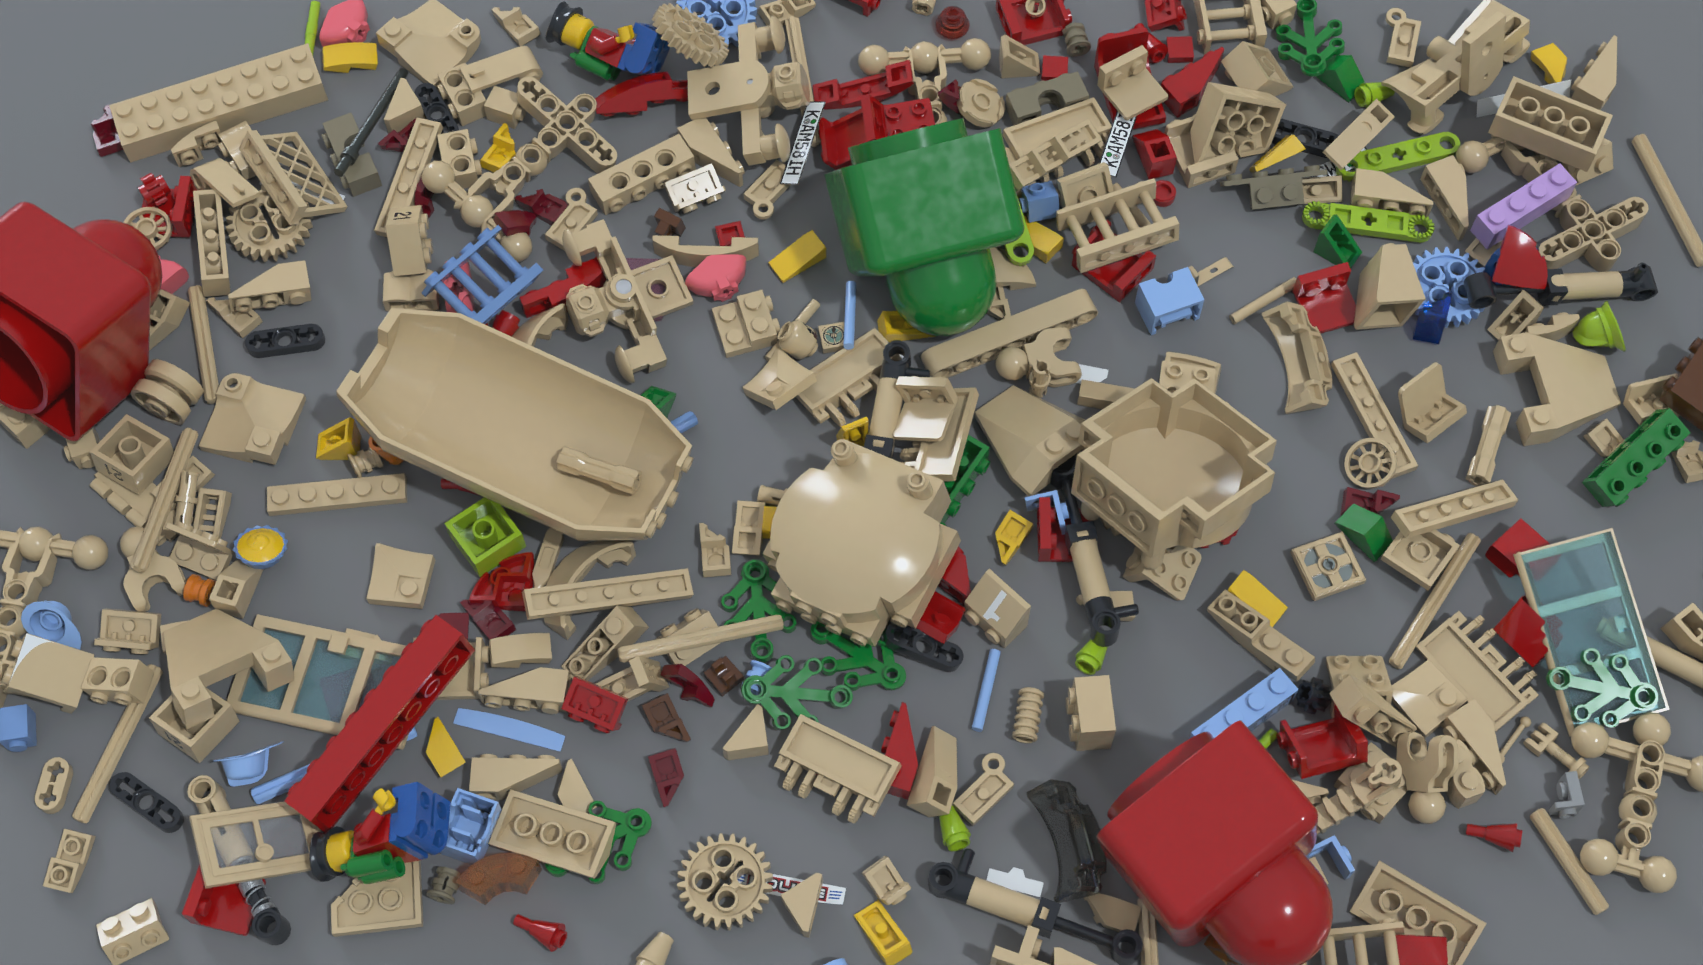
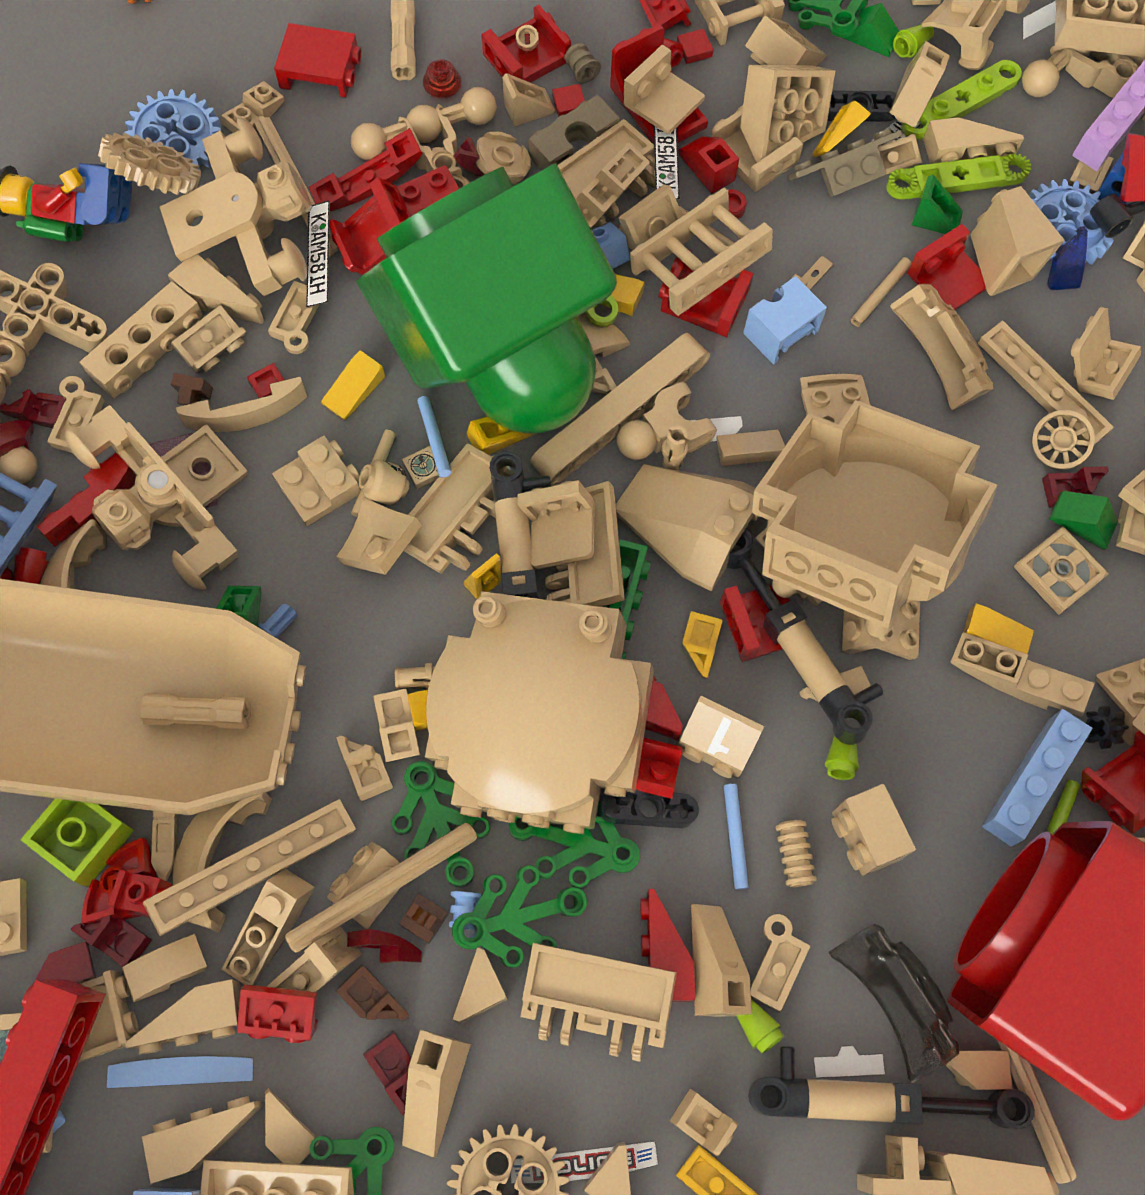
camera: 20 degrees left, 5 degrees up
(442, 750) = (102, 1132): yellow slope -> none
(511, 588) = (133, 889): none -> red brick
(634, 93) = (105, 249): red slope -> none
(691, 793) = (431, 1090): none -> tan slope
(717, 276) = (267, 434): coral piece -> none
(1061, 508) = (751, 593): light blue bracket -> none
(1189, 85) = (720, 77): red slope -> none
(1447, 187) = (1028, 114): tan slope -> none

